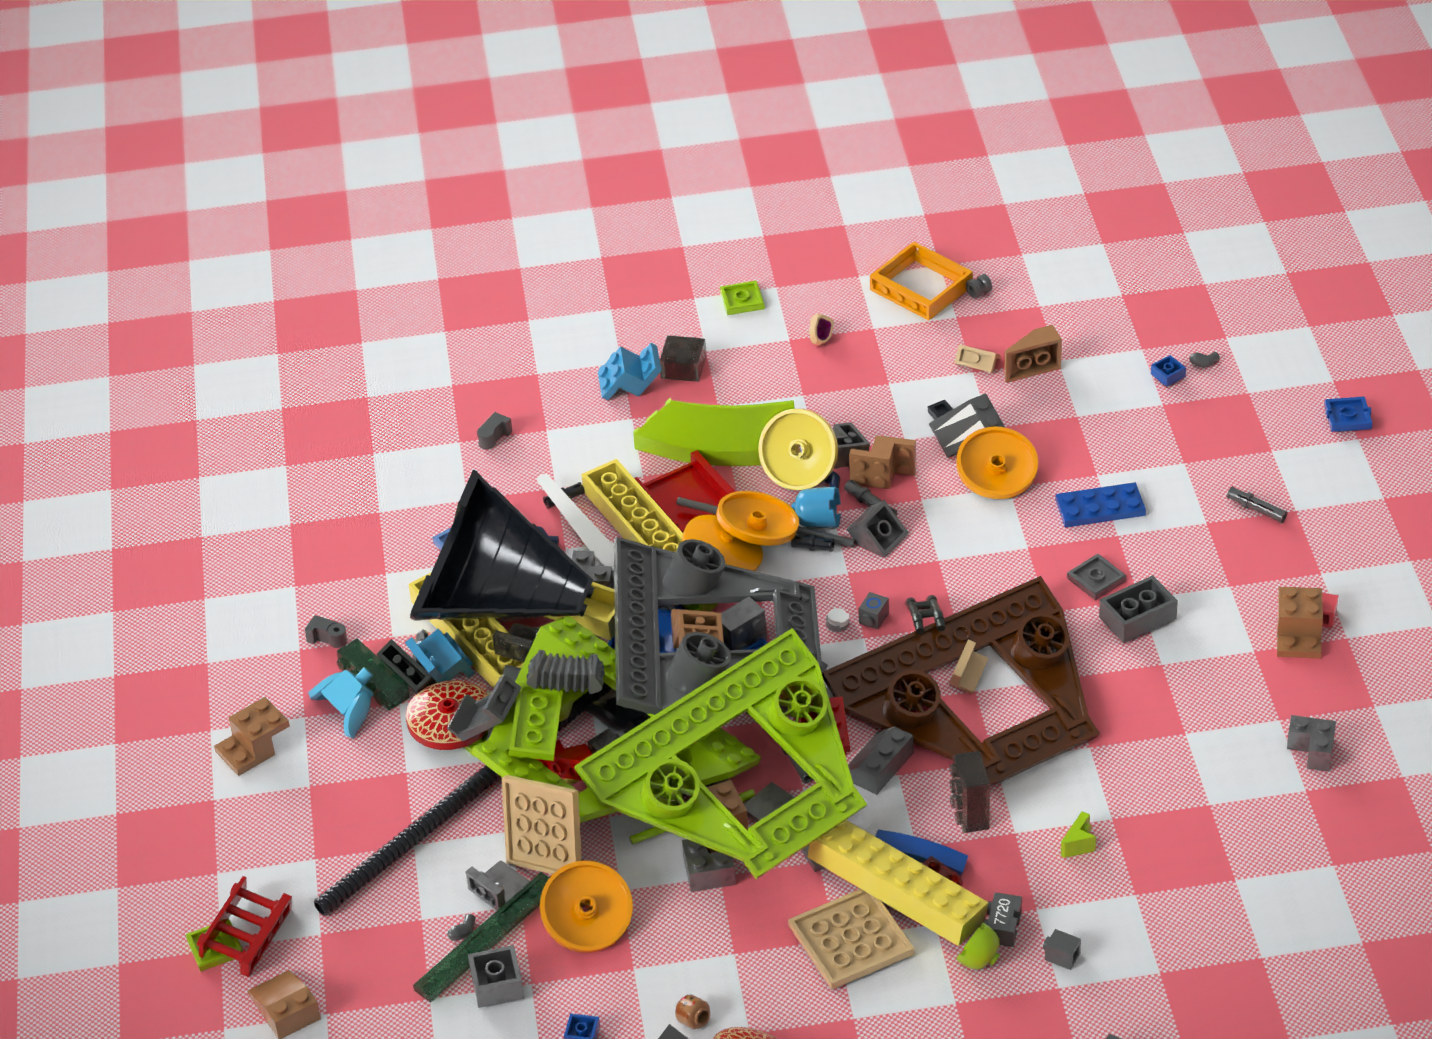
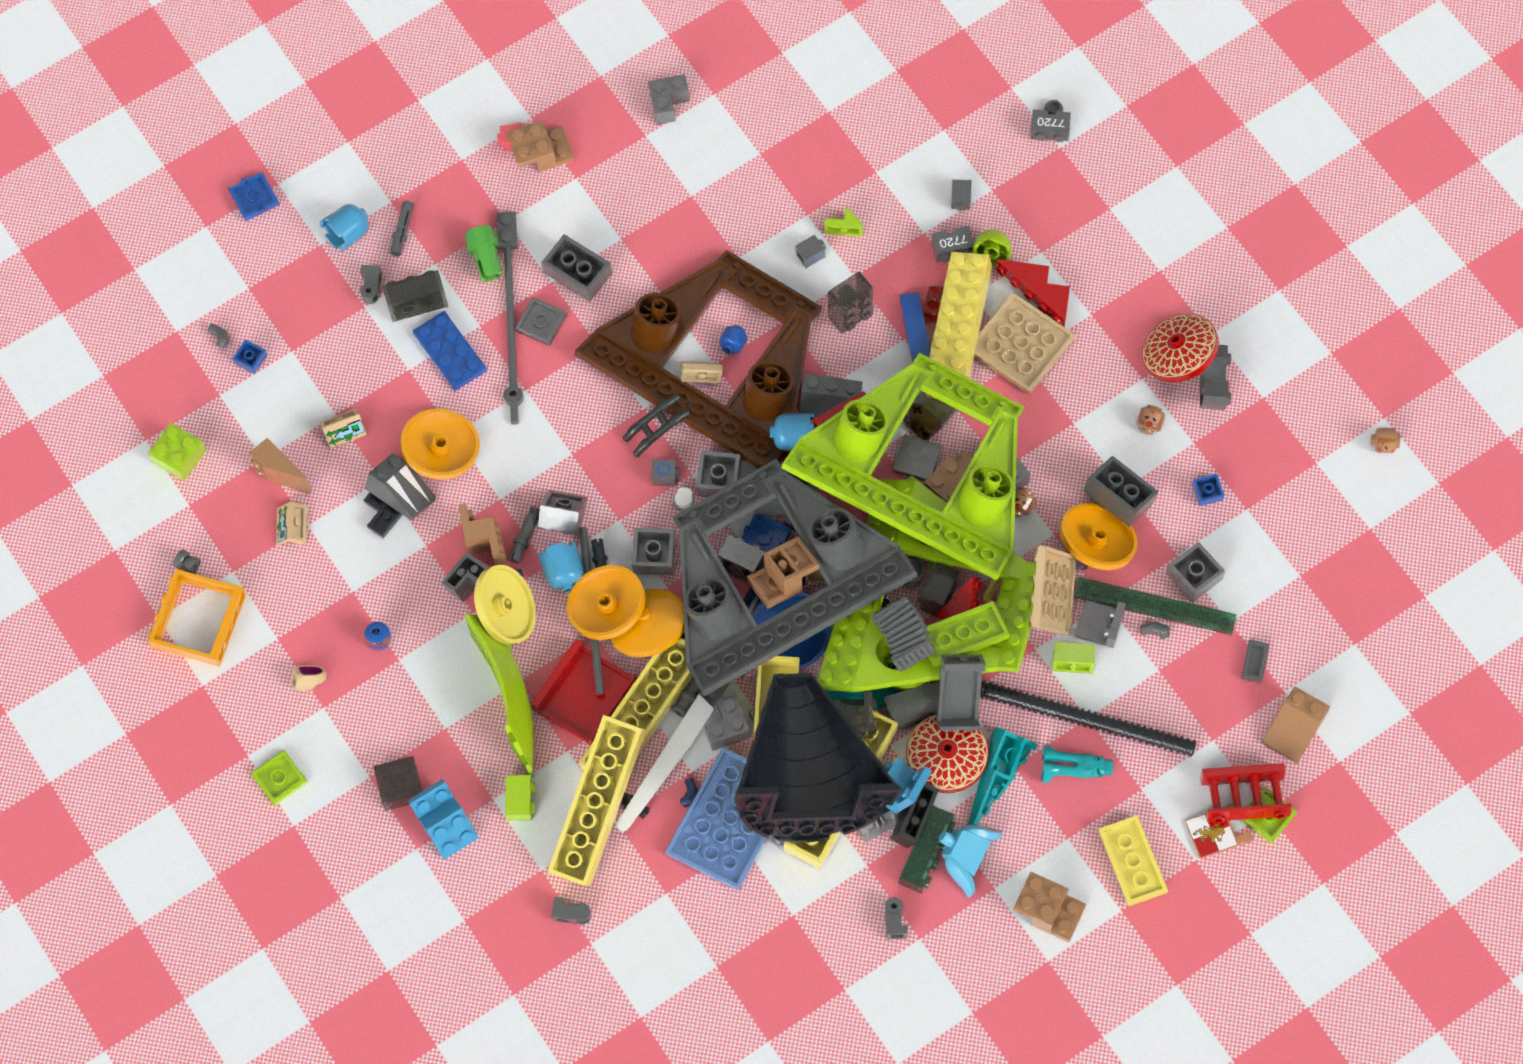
camera: 115 degrees left, 25 degrees up
(220, 892) = (1214, 837): none -> flag
(249, 819) = (1132, 860): none -> light yellow plate
(365, 816) = (1085, 765): none -> teal piece
(373, 999) = (1255, 661): none -> dark grey tile
(418, 763) = (1004, 758): none -> teal wedge
(477, 847) = (1073, 657): none -> lime hinge
(570, 453) = (596, 801): none -> light yellow brick
(616, 426) = (519, 797): none -> lime brick
(623, 944) = (1120, 491): none -> dark grey brick
(668, 868) = (1024, 502): none -> medium nougat head
(796, 566) = (653, 551): none -> flat silver brick
(829, 378) = (377, 635): none -> blue head
(844, 640) = (717, 472): none -> flat silver brick
(855, 695) = (790, 428): none -> dark azure cylinder
(913, 973) = (1033, 283): none -> red slope
(990, 705) = (733, 339): none -> blue head
(1058, 409) = (343, 428): none -> panel
(1060, 798) = (810, 251): none -> dark grey brick
(1093, 302) = (177, 451): none -> lime brick
(1168, 484) = (415, 295): none -> clear smoke brick
(1202, 578) = (507, 241): none -> dark grey bar
(1203, 548) = (482, 244): none -> bright green piece
(1204, 467) = (372, 282): none -> dark grey leg
(1274, 457) = (345, 226): none -> dark azure cylinder

